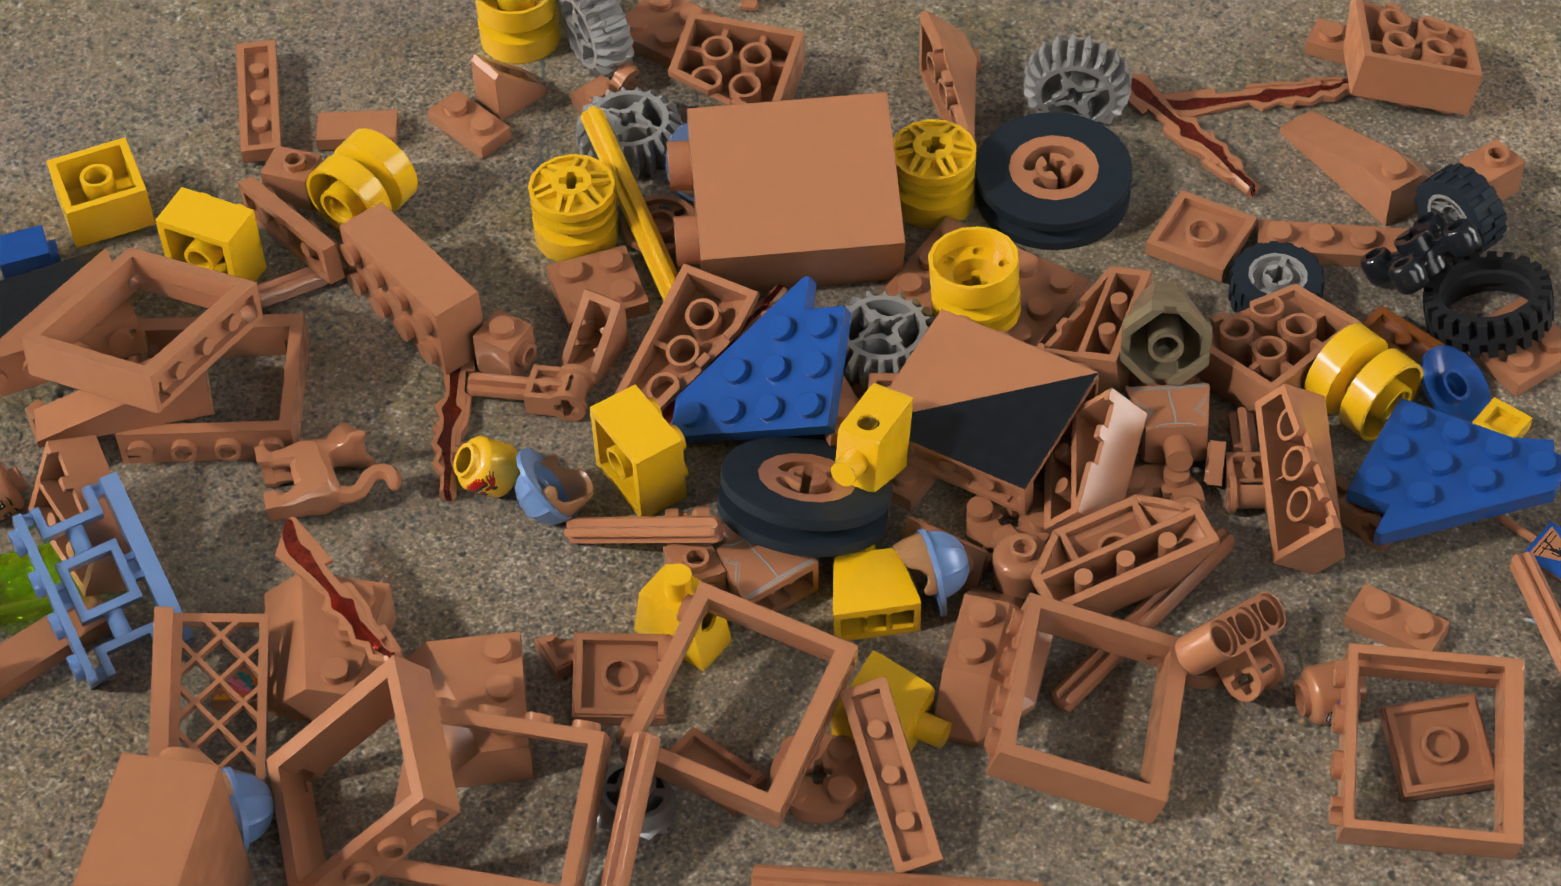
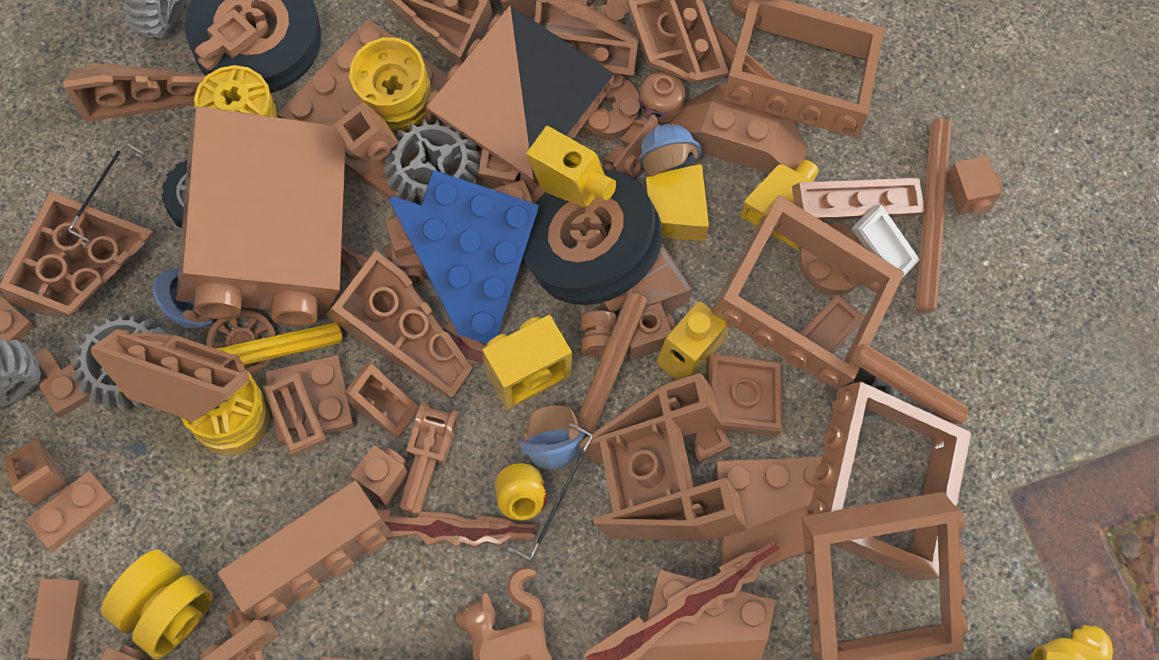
camera: 90 degrees left, 20 degrees up
(485, 502) = (560, 497): none -> black piece
(510, 560) = (651, 471): none -> nougat wedge
(574, 270) = (306, 442): none -> nougat tile
(595, 132) = (170, 371): none -> nougat wedge
(814, 68) = (96, 187): none -> piece
(835, 817) = (883, 238): none -> white tile
(894, 256) = (366, 133): none -> nougat brick
(1017, 143) = (228, 35): none -> nougat plate

